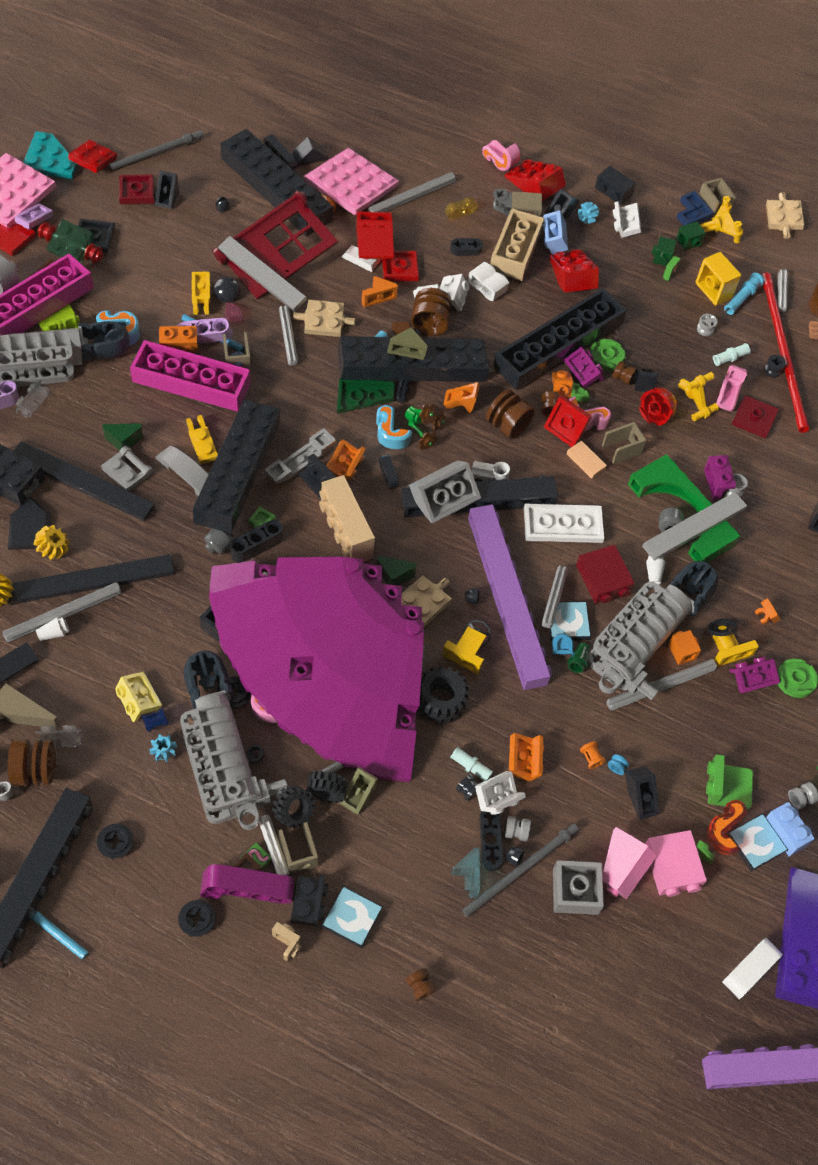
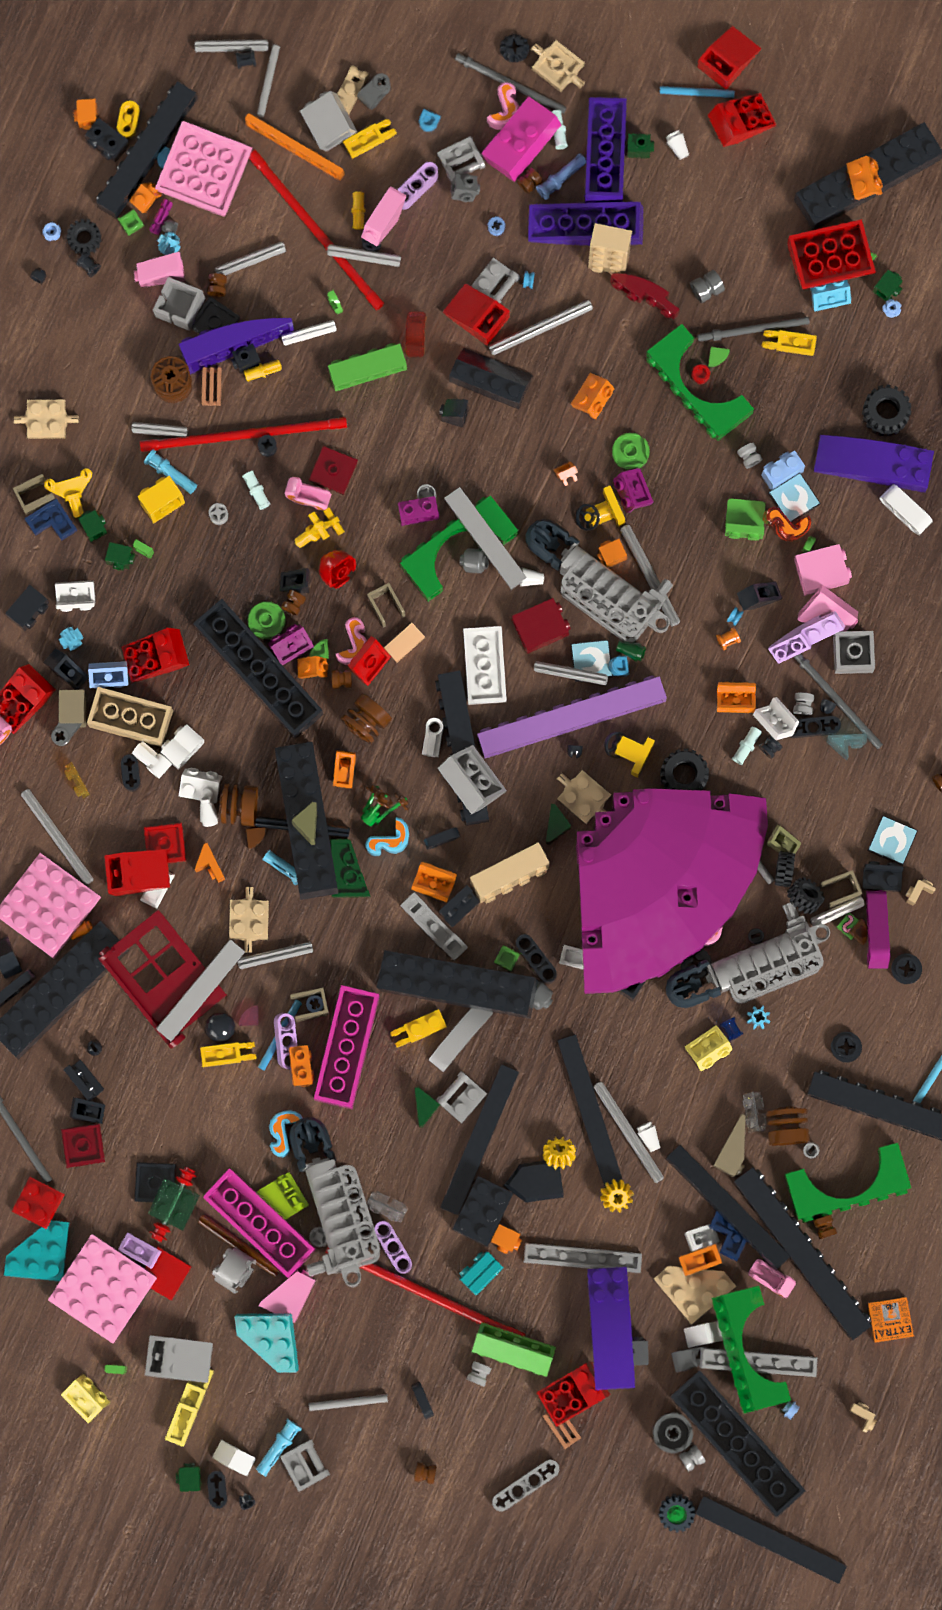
camera: 85 degrees left, 20 degrees up
(192, 189) = (84, 1080): none -> black bracket
(471, 261) = (155, 762): none -> white piece
(596, 834) = (805, 635): none -> lavender slope

